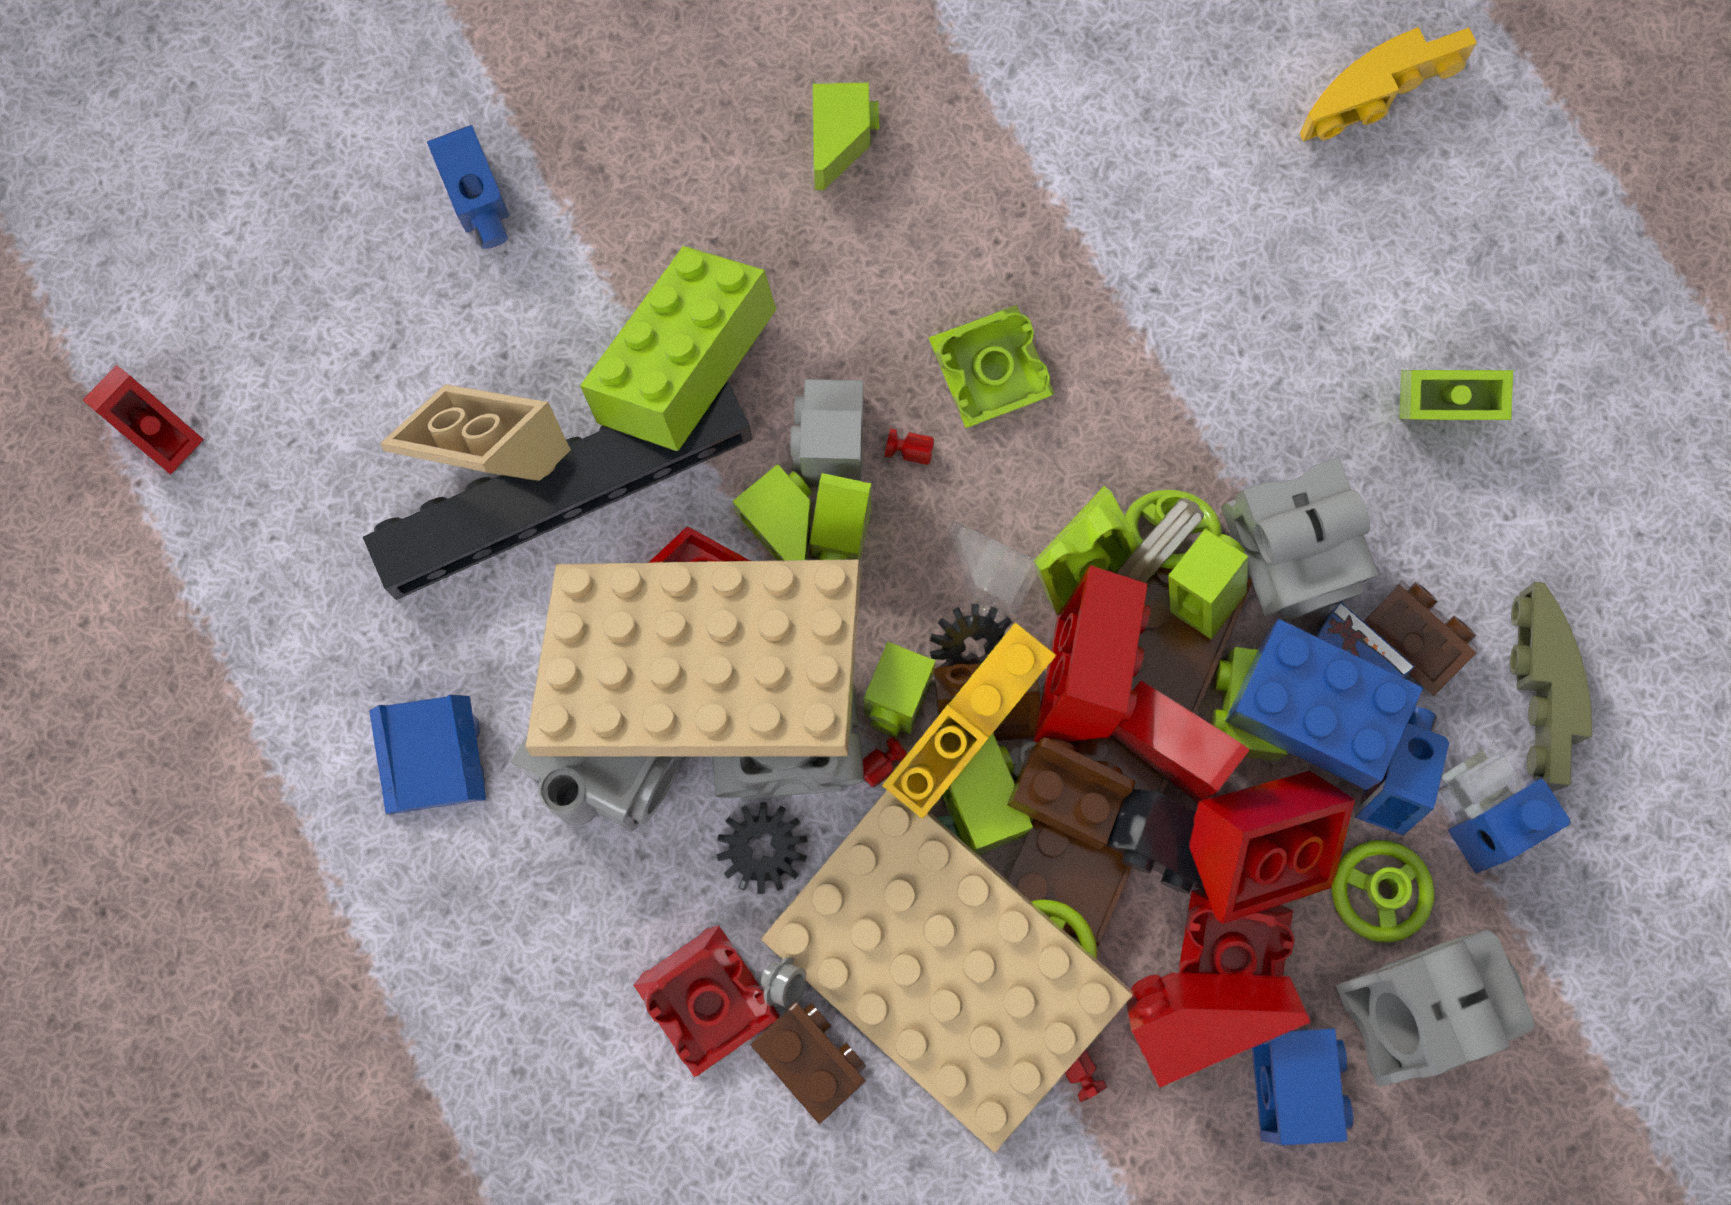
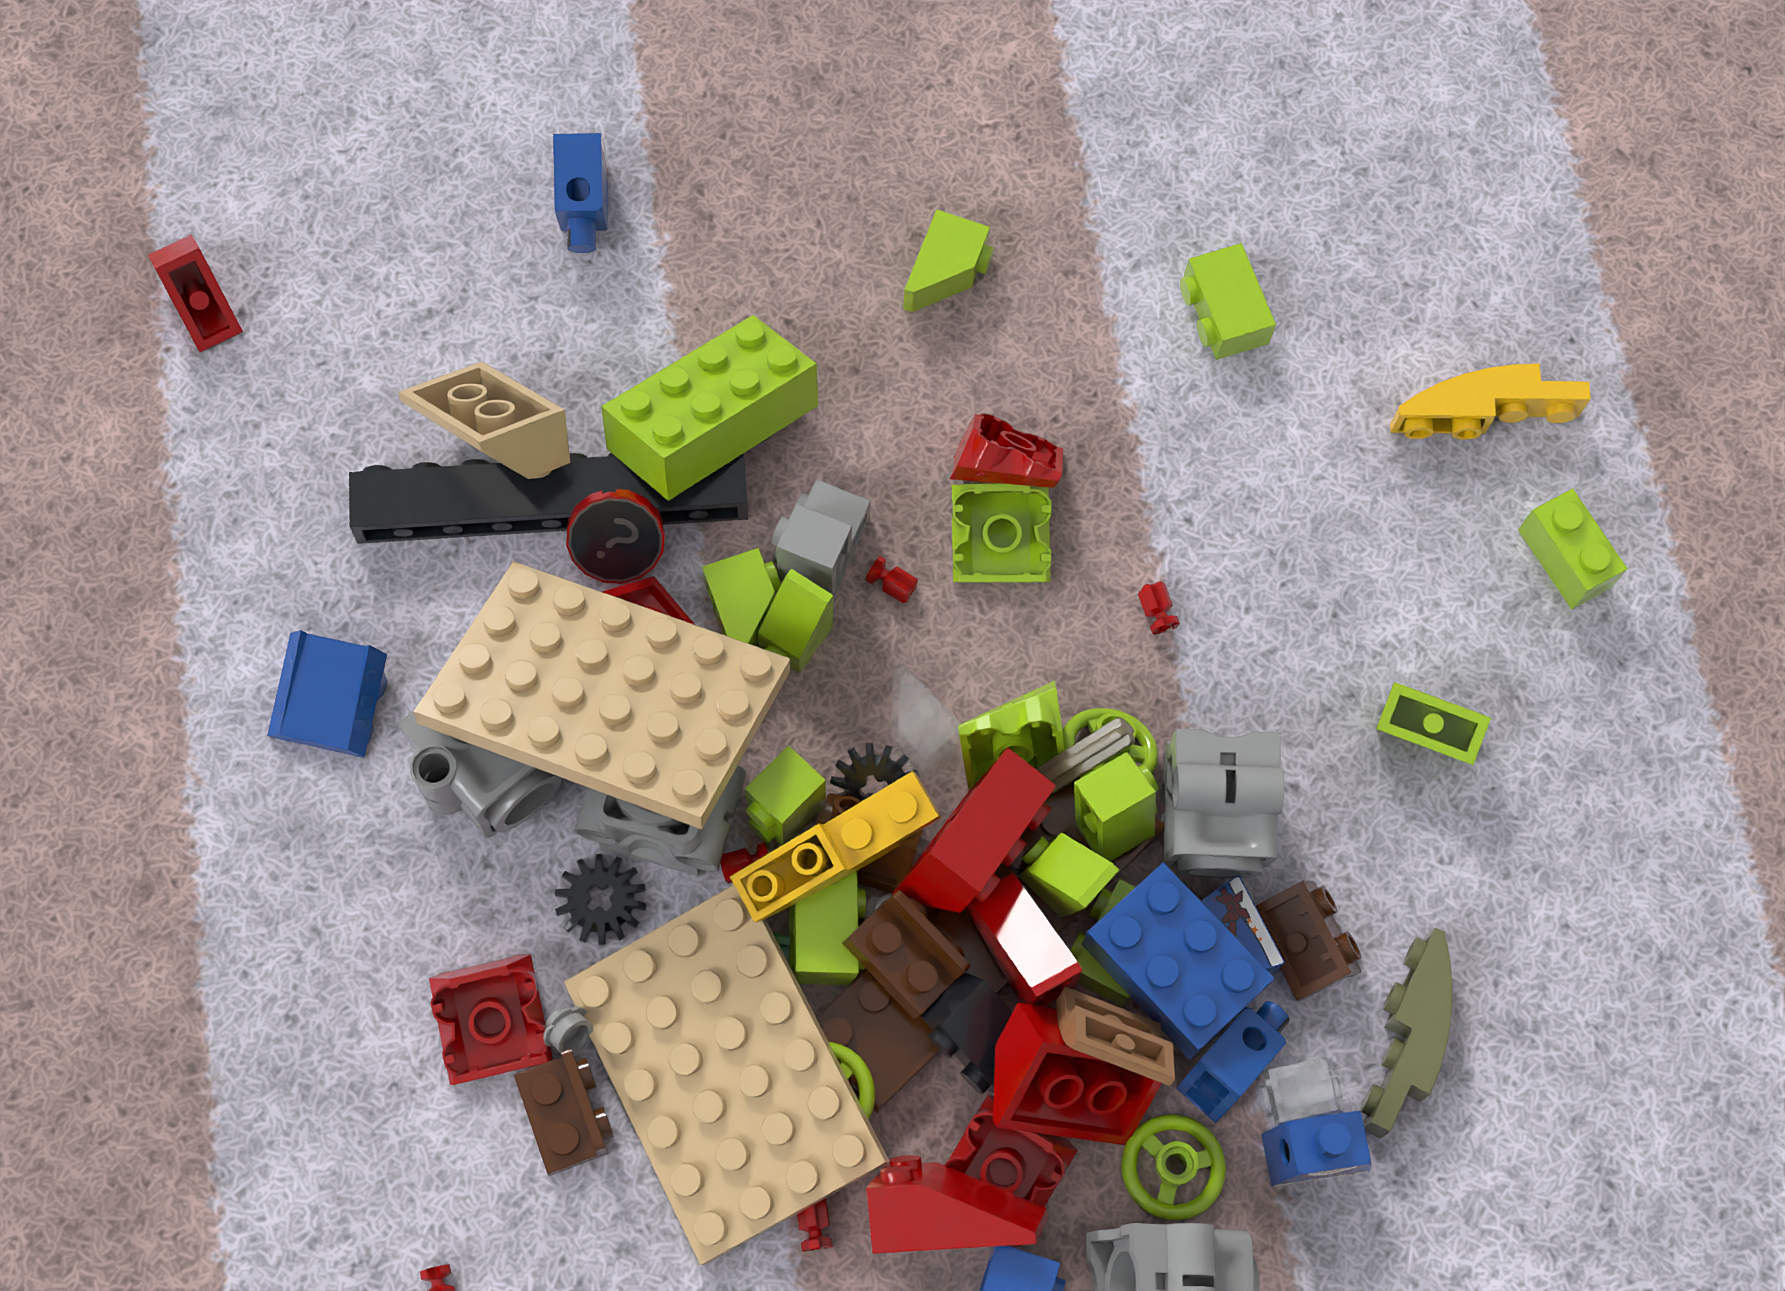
camera: 15 degrees right, 5 degrees down
(639, 503) = (615, 536): none -> black tile
(962, 292) = (1003, 455): none -> red slope
(1111, 73) = (1227, 301): none -> lime brick
(1158, 378) = (1156, 604): none -> red piece
(1189, 662) = (1065, 873): none -> lime slope
(1301, 798) = (1115, 1035): none -> medium nougat slope
(1512, 187) = (1572, 548): none -> lime brick

